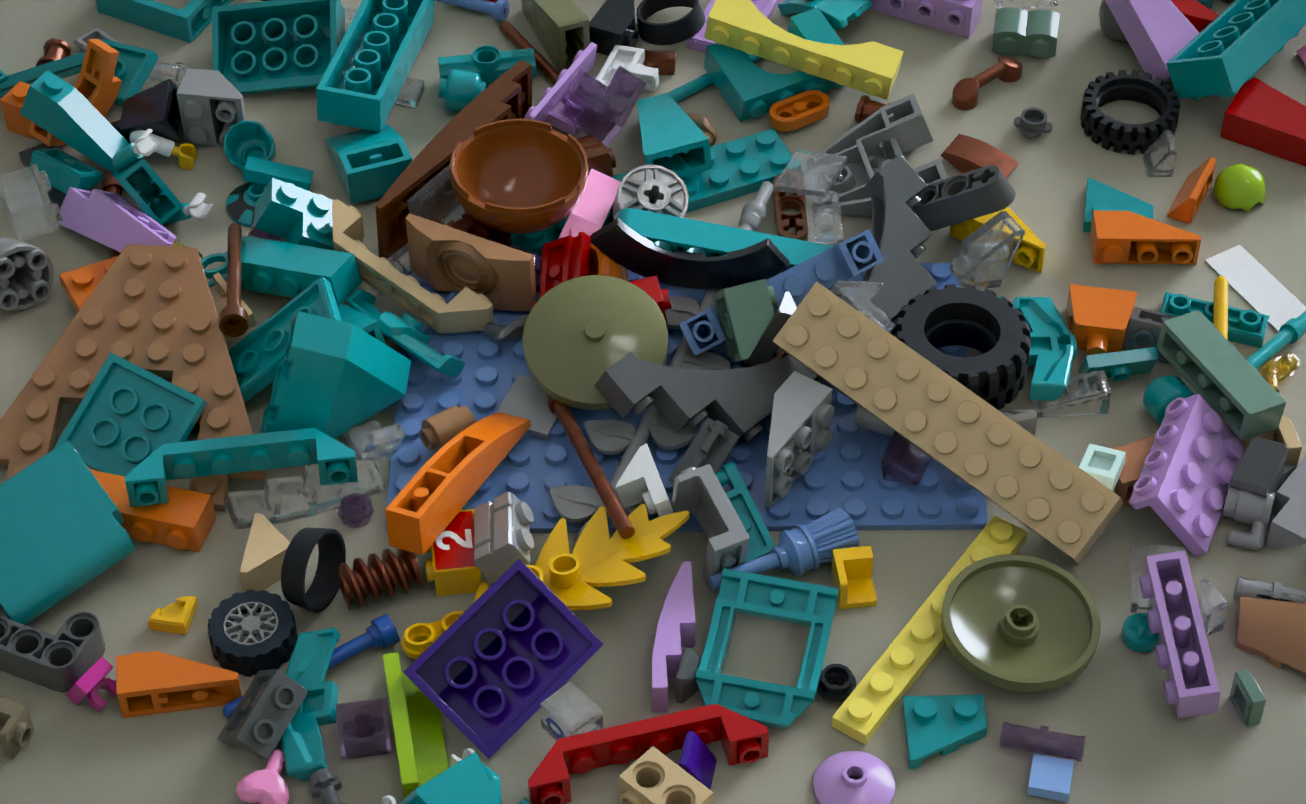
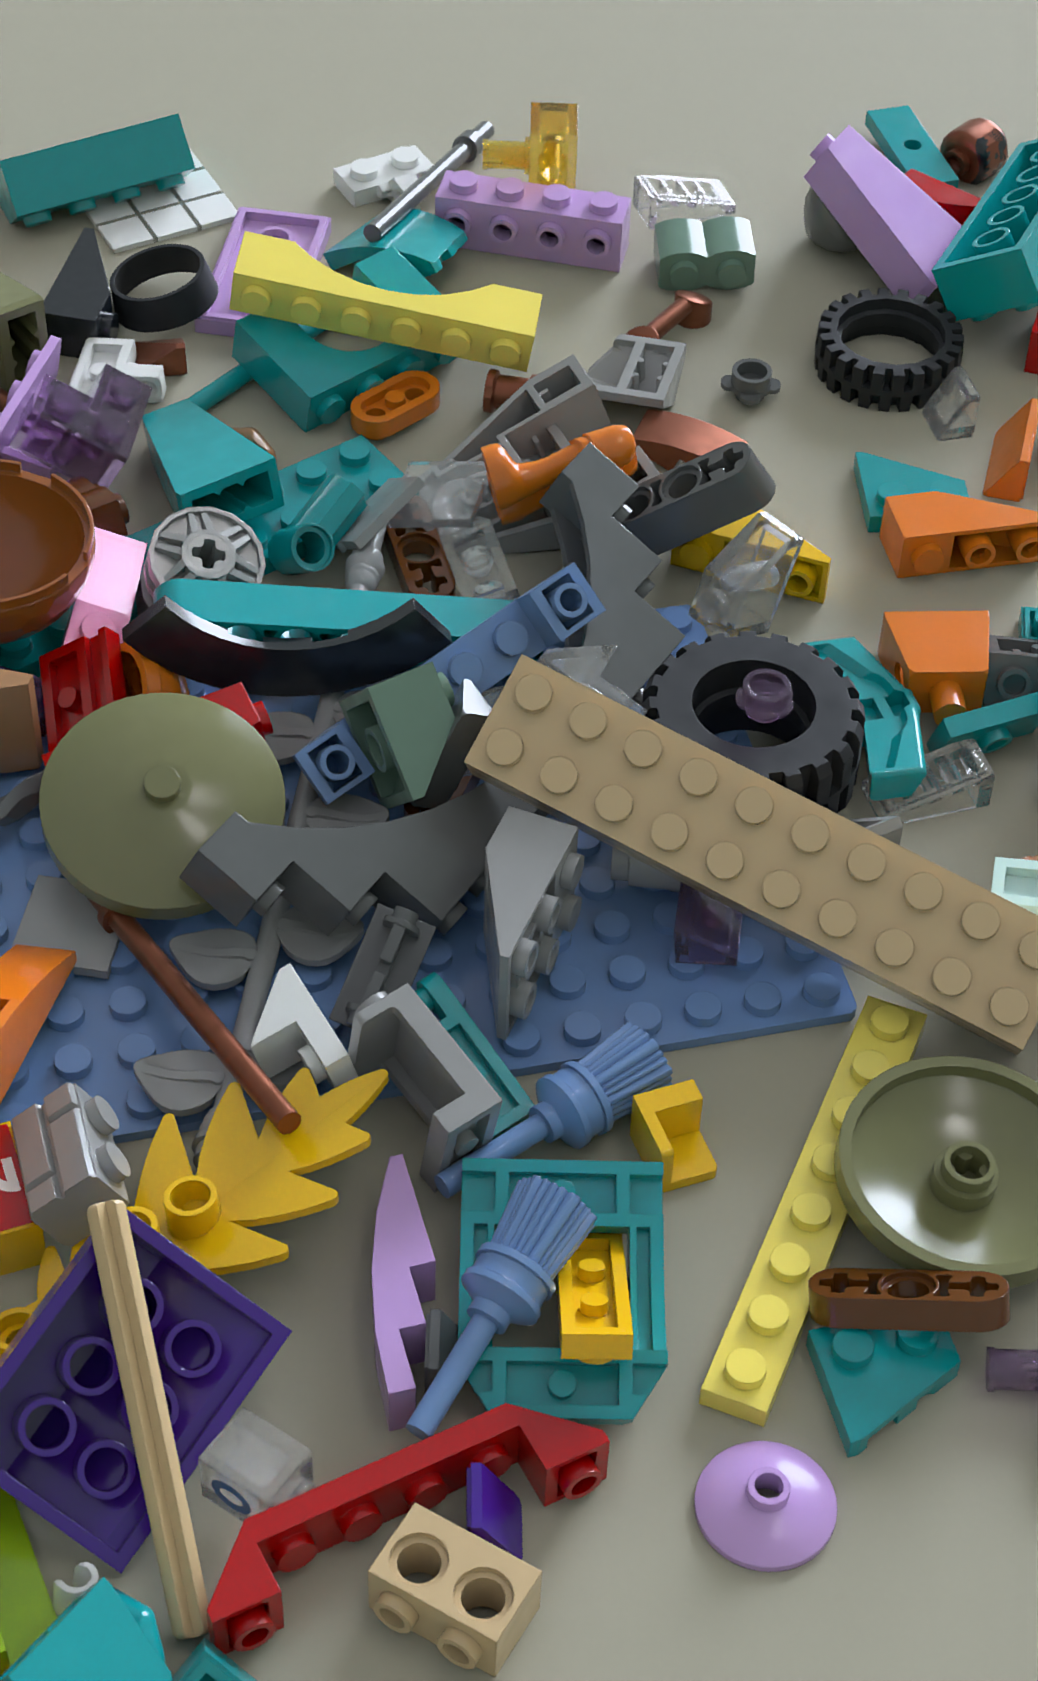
camera: 15 degrees left, 0 degrees up
(515, 674) = (149, 1419): none -> tan axle
(731, 183) = (319, 525): none -> teal piece
(732, 638) = (508, 1283): none -> medium blue piece
(767, 180) = (380, 510): none -> light grey piece
(779, 655) = (595, 1302): none -> yellow plate
(836, 675) = (696, 1312): black plate -> none
(856, 174) = (520, 486): none -> orange piece
(960, 108) = (640, 371): none -> light grey slope
(963, 687) = (909, 1299): none -> reddish brown beam
(968, 326) = (765, 695): none -> clear purple plate

